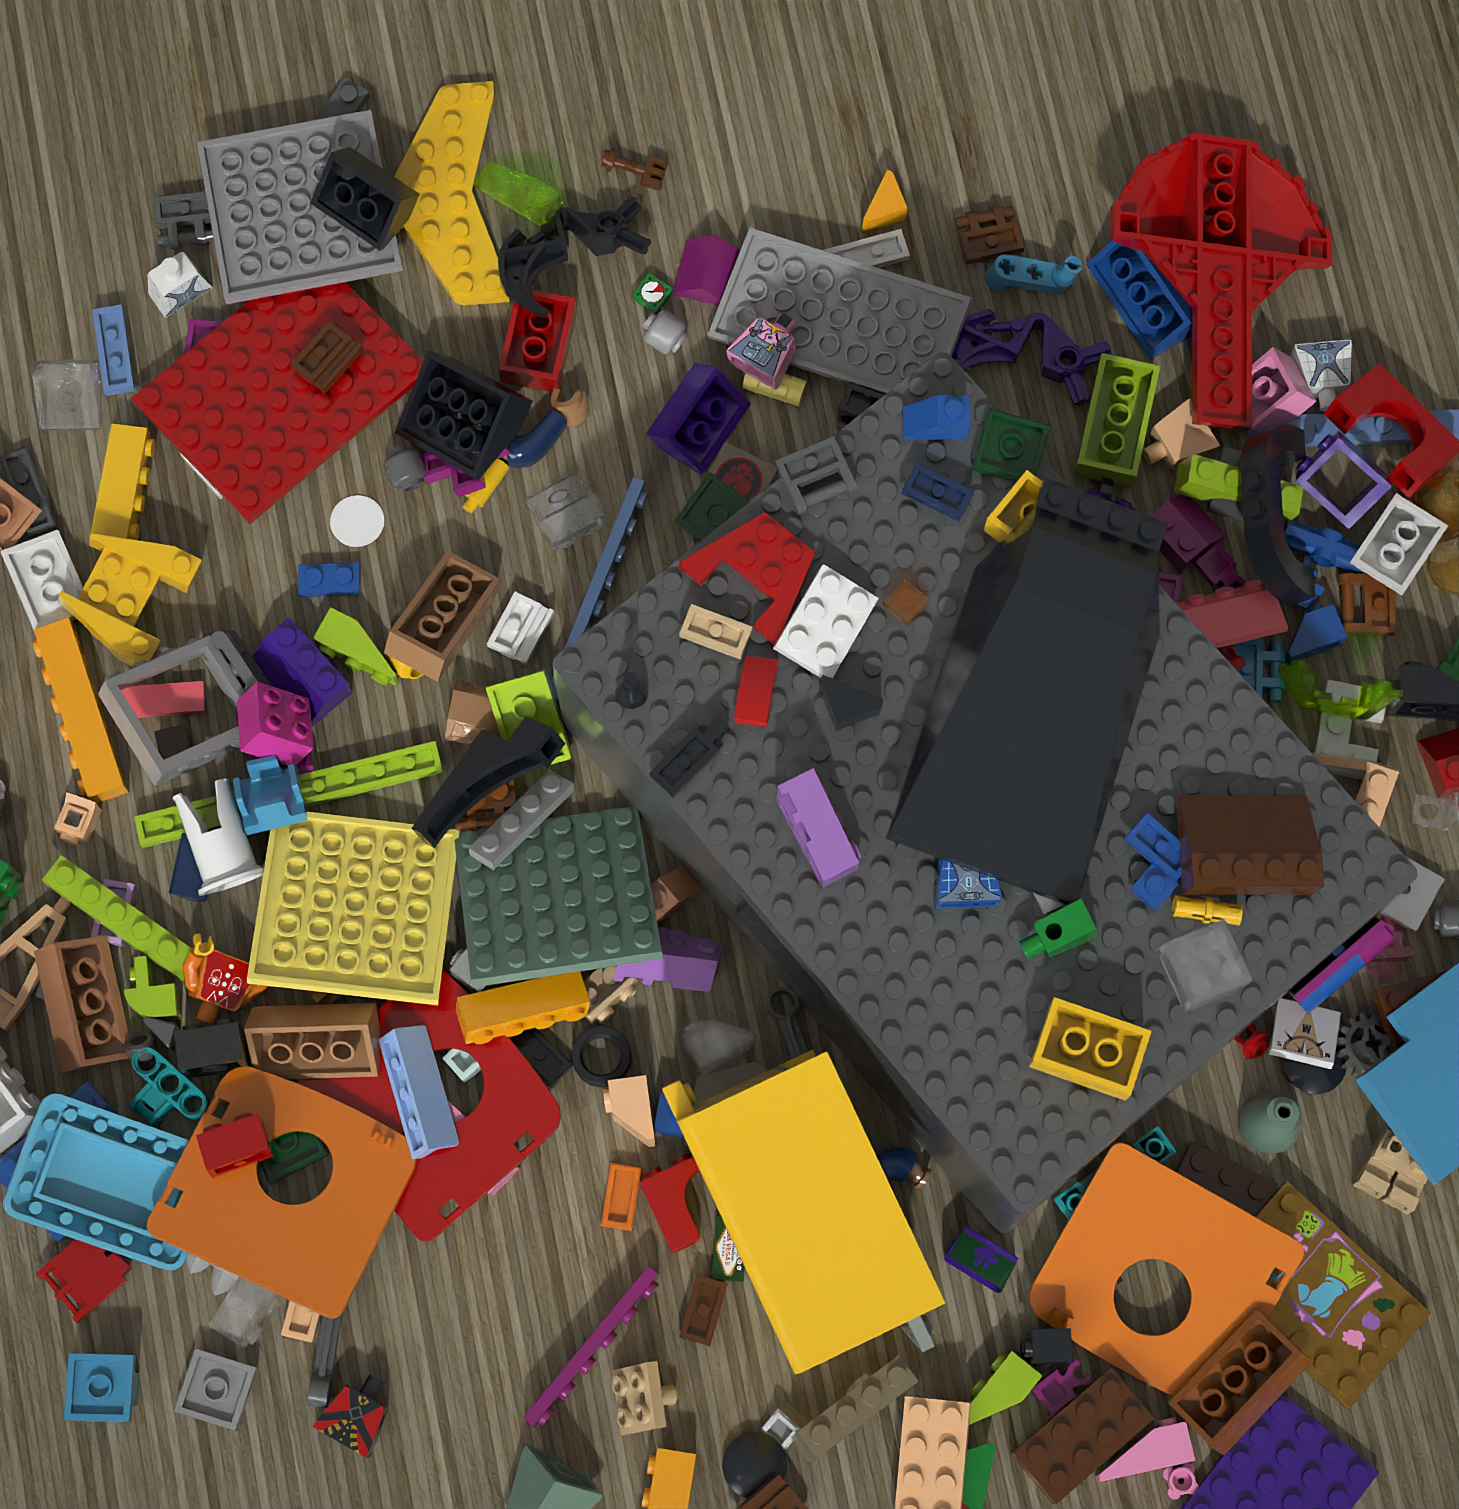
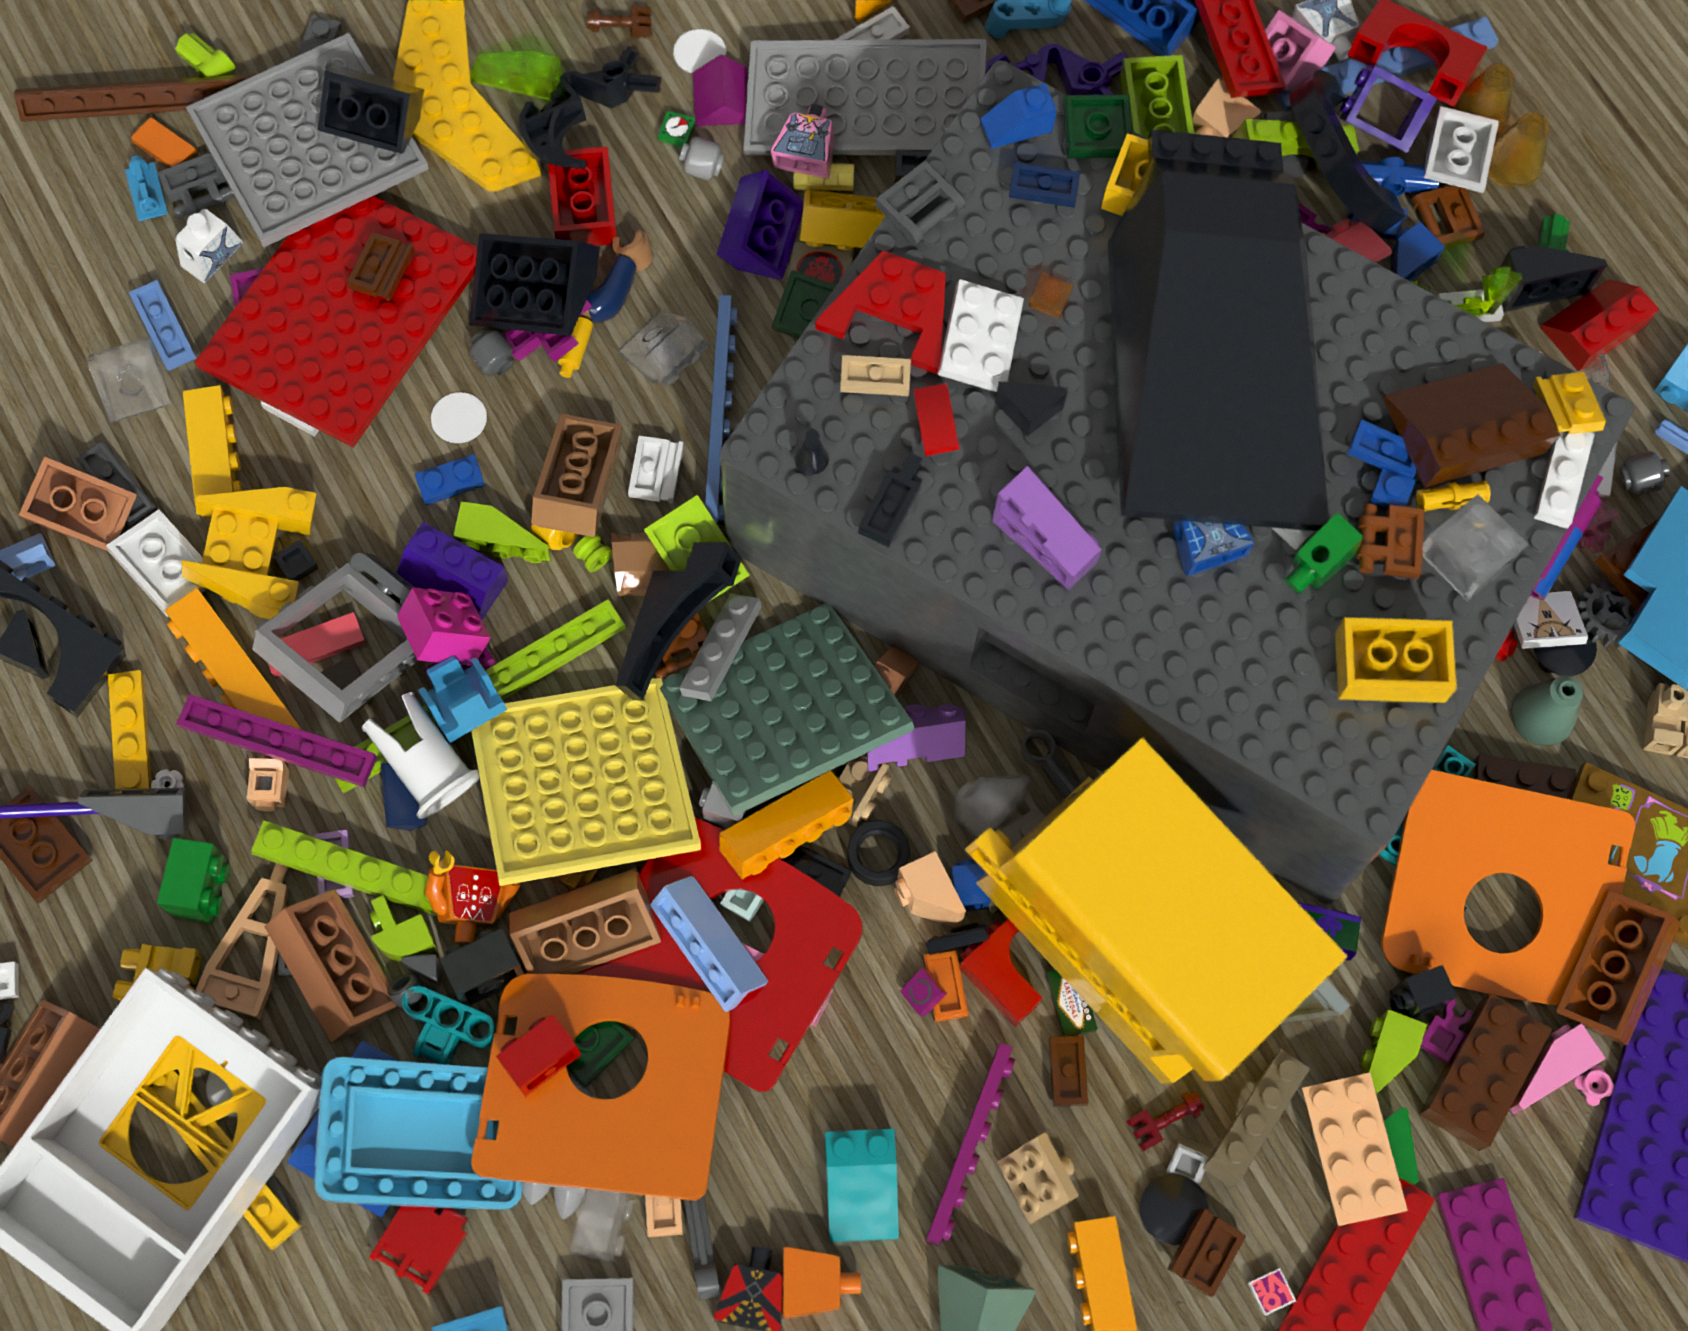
camera: 20 degrees left, 5 degrees down
(95, 784) = (277, 740): none -> magenta plate
(138, 210) = (145, 189): none -> dark azure hinge
(144, 111) = (119, 98): none -> reddish brown tile
(165, 617) = (295, 561): none -> black plate
(168, 168) = (163, 144): none -> orange tile
(233, 99) = (203, 58): none -> lime piece
(412, 1424) = (814, 1283): none -> orange torso
(436, 692) = (592, 552): none -> lime wheel
(483, 1352) = (861, 1185): none -> teal slope
(597, 1197) = (923, 992): none -> magenta tile
(650, 1158) = (958, 937): none -> black tile
(701, 217) = (697, 48): none -> white sticker
(763, 1384) = (1190, 1105): none -> dark red hinge
(776, 430) = (839, 219): none -> yellow slope
(1143, 938) = (1403, 540): none -> dark orange plate
(1321, 922) = (1564, 478): none -> white plate
(1351, 855) = (1571, 402): none -> yellow plate

